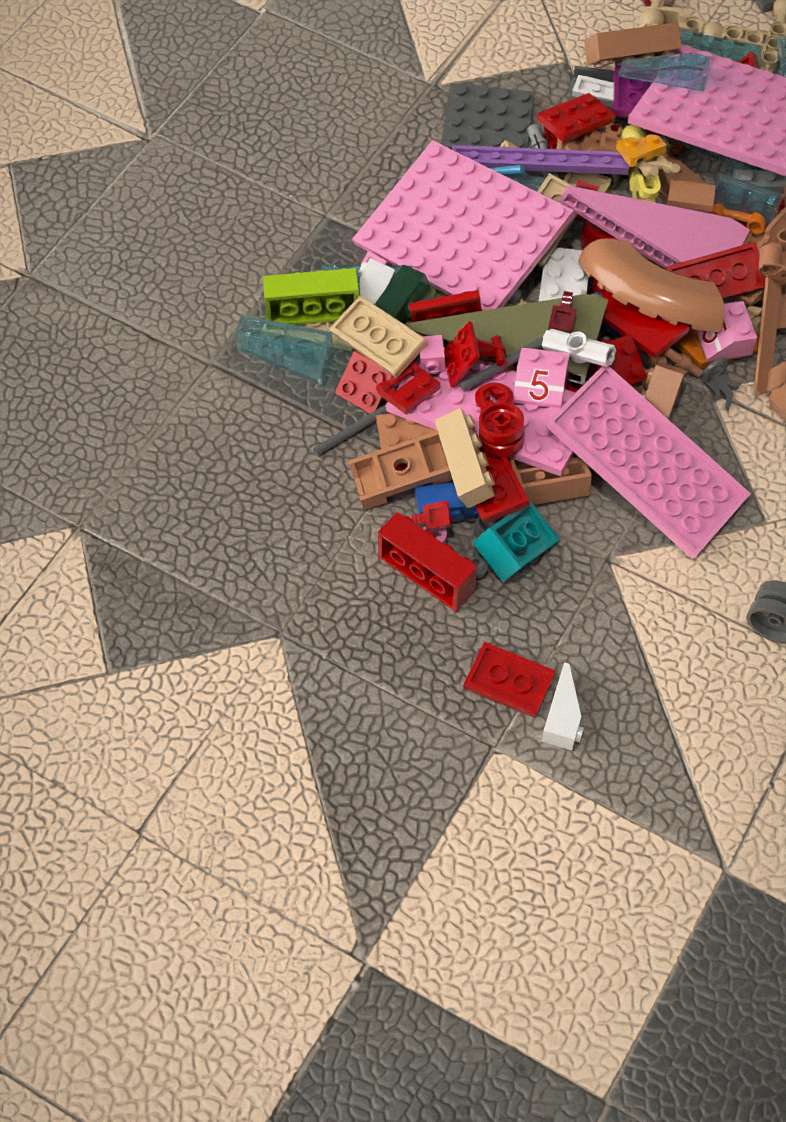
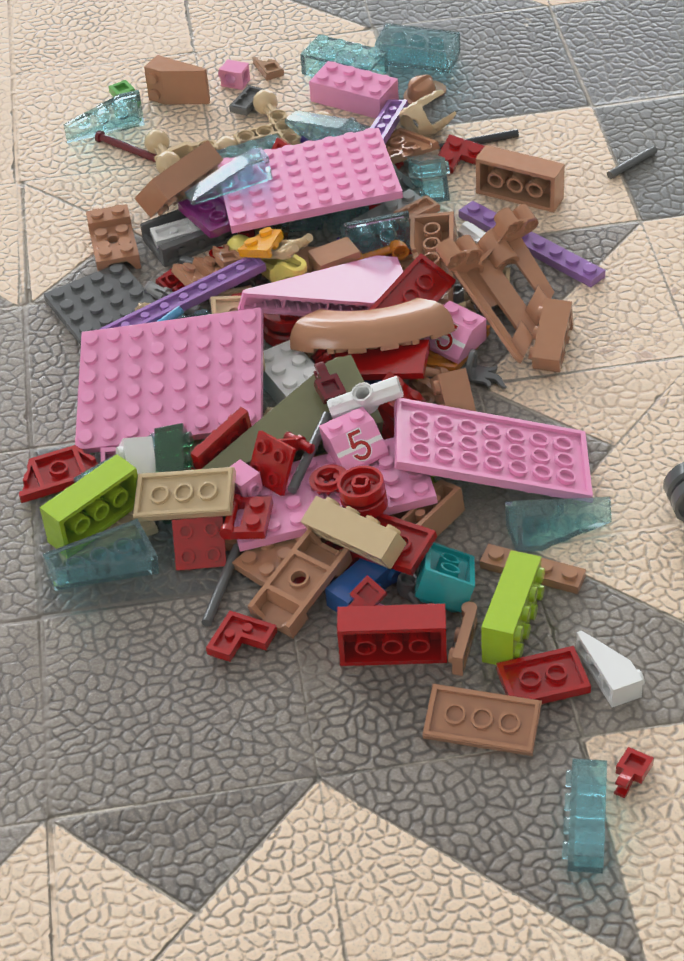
camera: 35 degrees left, 15 degrees down
(321, 247) = (54, 472): none -> red wing
(327, 474) = (237, 630): none -> red plate
(431, 679) = (482, 719): none -> nougat tile
(431, 812) = (586, 817): none -> clear light blue brick
(482, 603) = (463, 638): none -> nougat plate
(502, 801) = (631, 767): none -> red plate
(535, 606) = (512, 608): none -> lime brick
(552, 51) = (111, 226): none -> nougat piece
(576, 117) = (183, 254): red plate -> none
(593, 583) = (557, 574): none -> nougat hinge
(644, 552) = (546, 522): none -> clear light blue wedge

